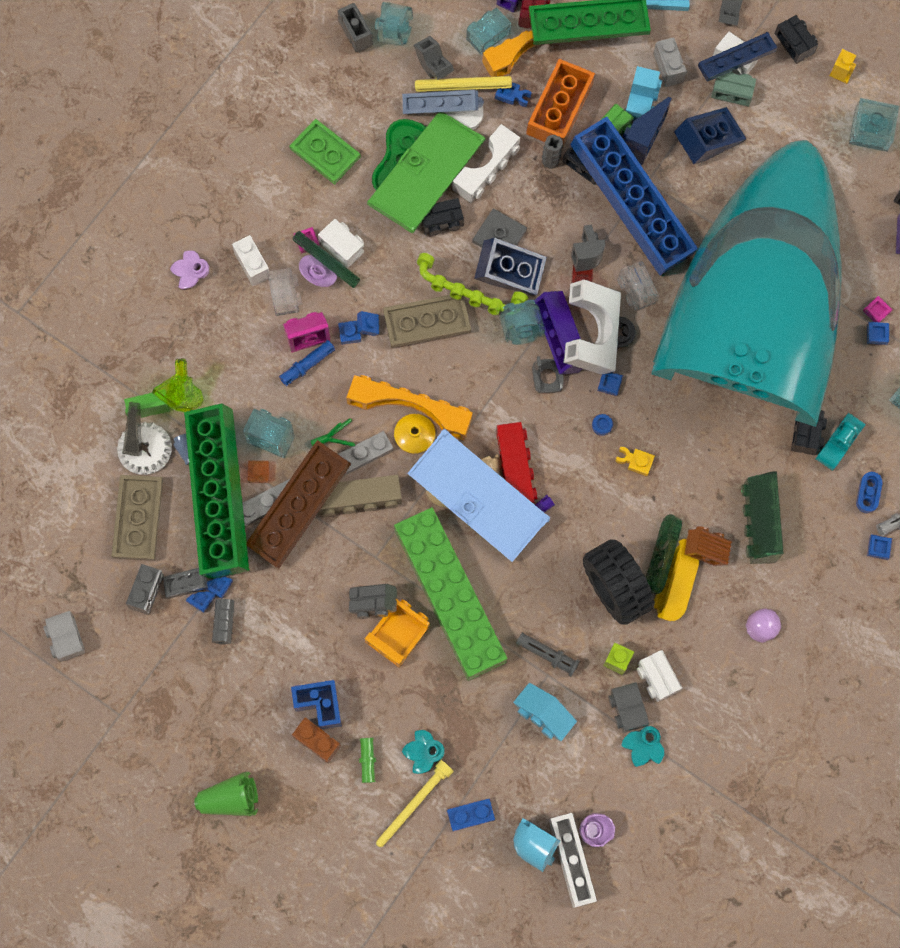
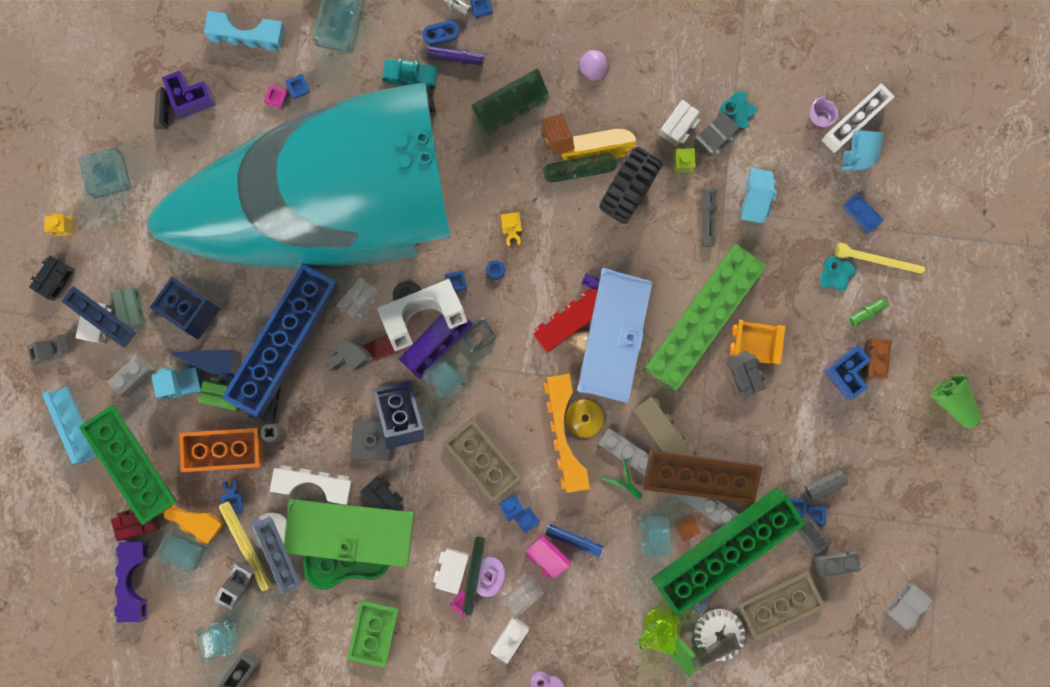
camera: 115 degrees left, 10 degrees up
(476, 298) = (445, 446): lime bar -> none
(833, 502) = (455, 55): none -> dark purple pin

